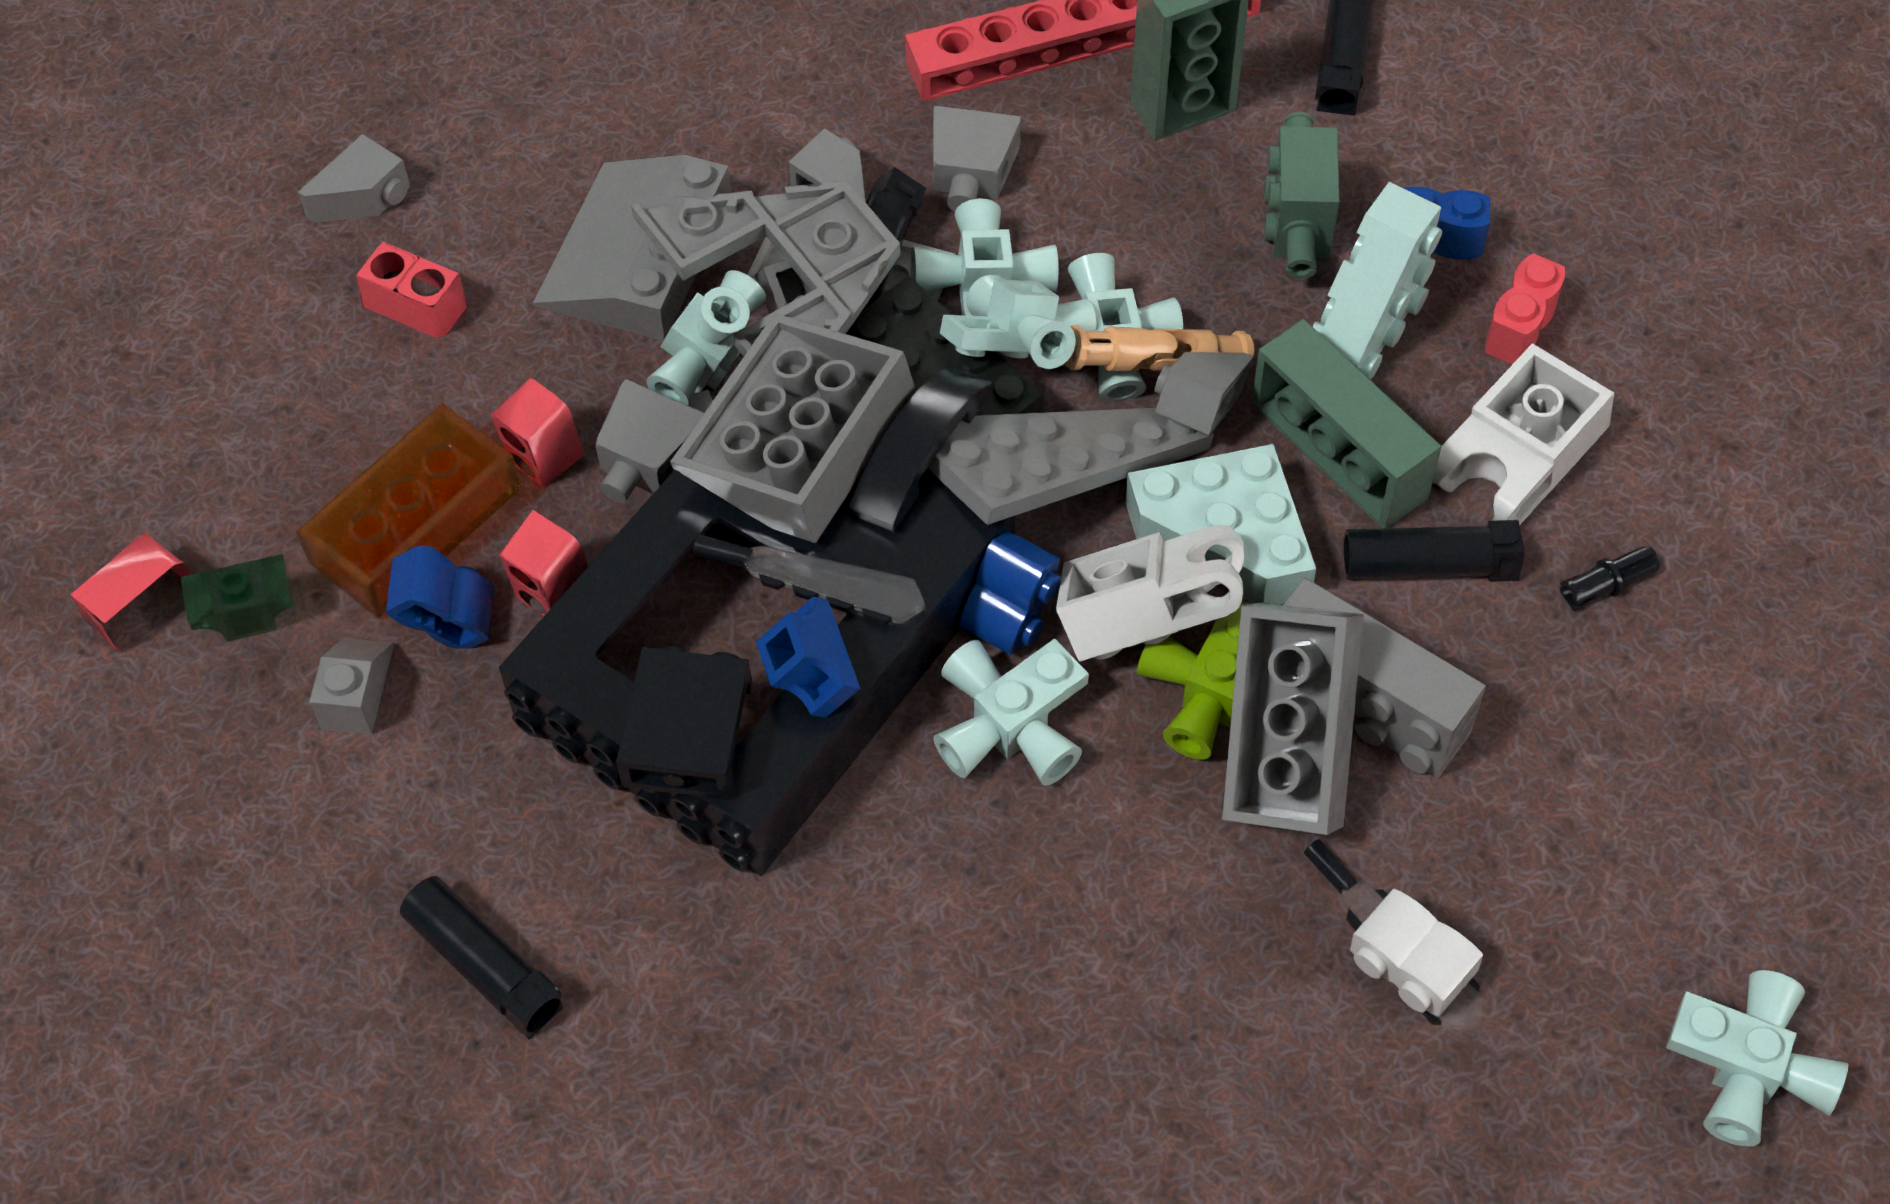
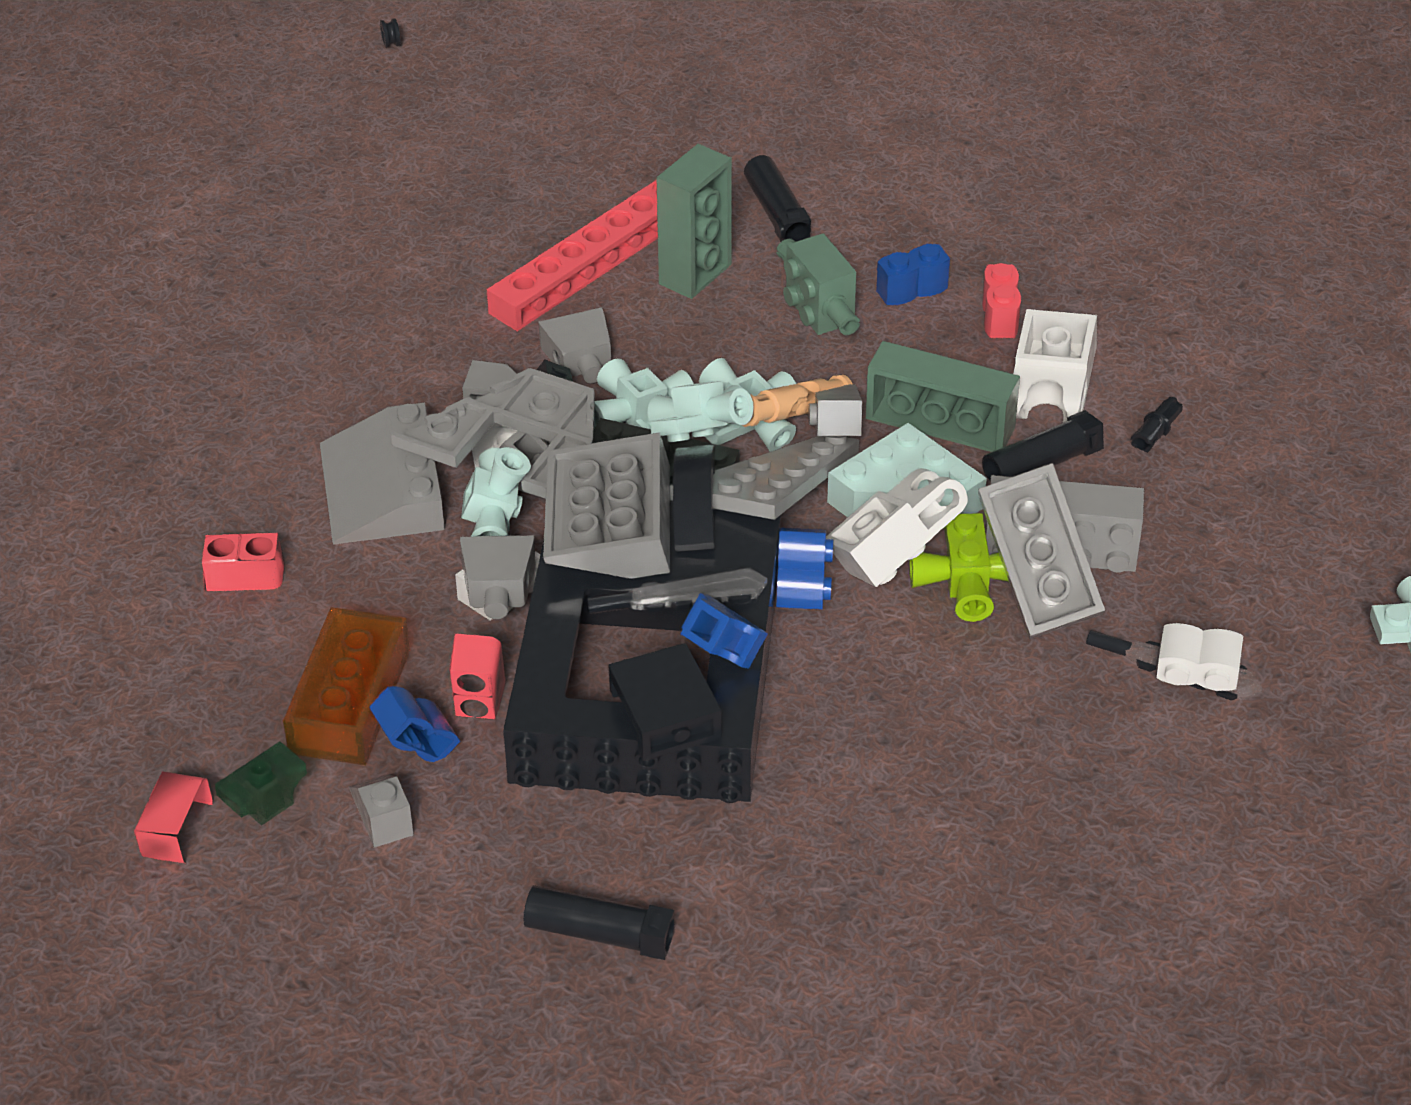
camera: 30 degrees left, 15 degrees down
(356, 184) = (150, 515): light grey slope -> none
(543, 422) = (410, 582): coral piece -> none
(1012, 710) = (850, 635): light aqua brick -> none
(1382, 278) = (910, 294): light aqua brick -> none

